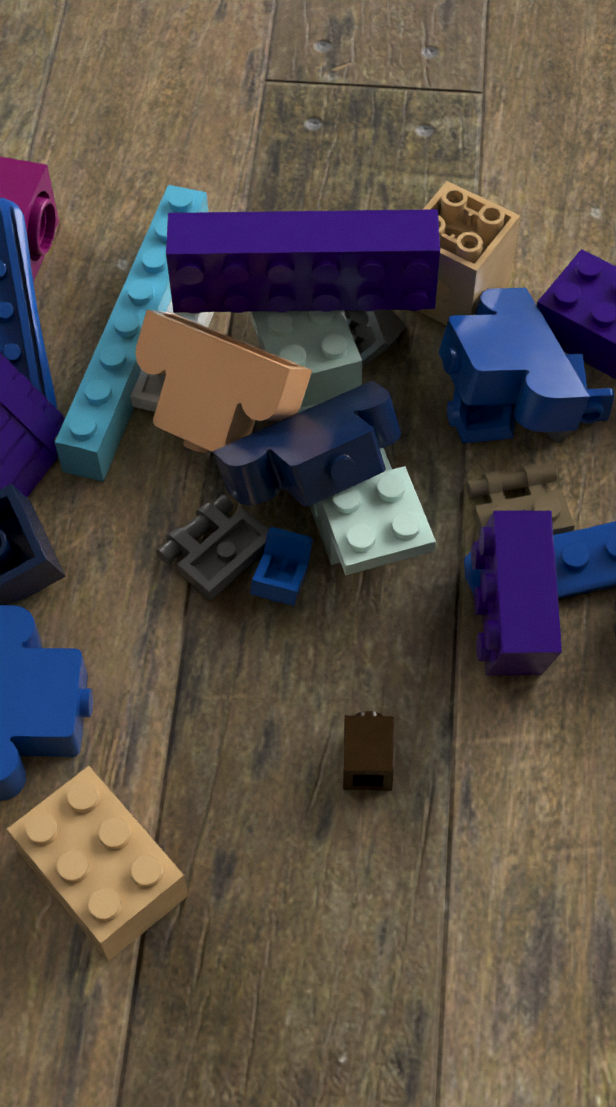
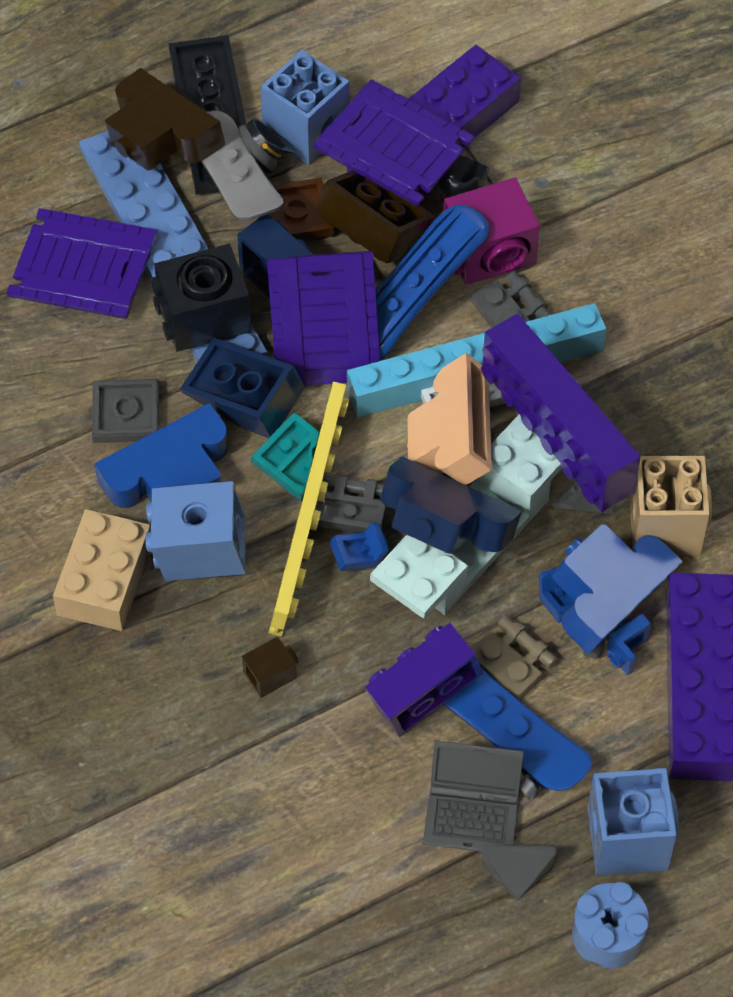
camera: 55 degrees right, 0 degrees up
(92, 277) = (499, 304): none -> dark grey plate
(102, 571) = (289, 455): none -> teal wing
(139, 717) = (197, 531): none -> medium blue brick
(198, 592) = (308, 516): none -> light yellow plate

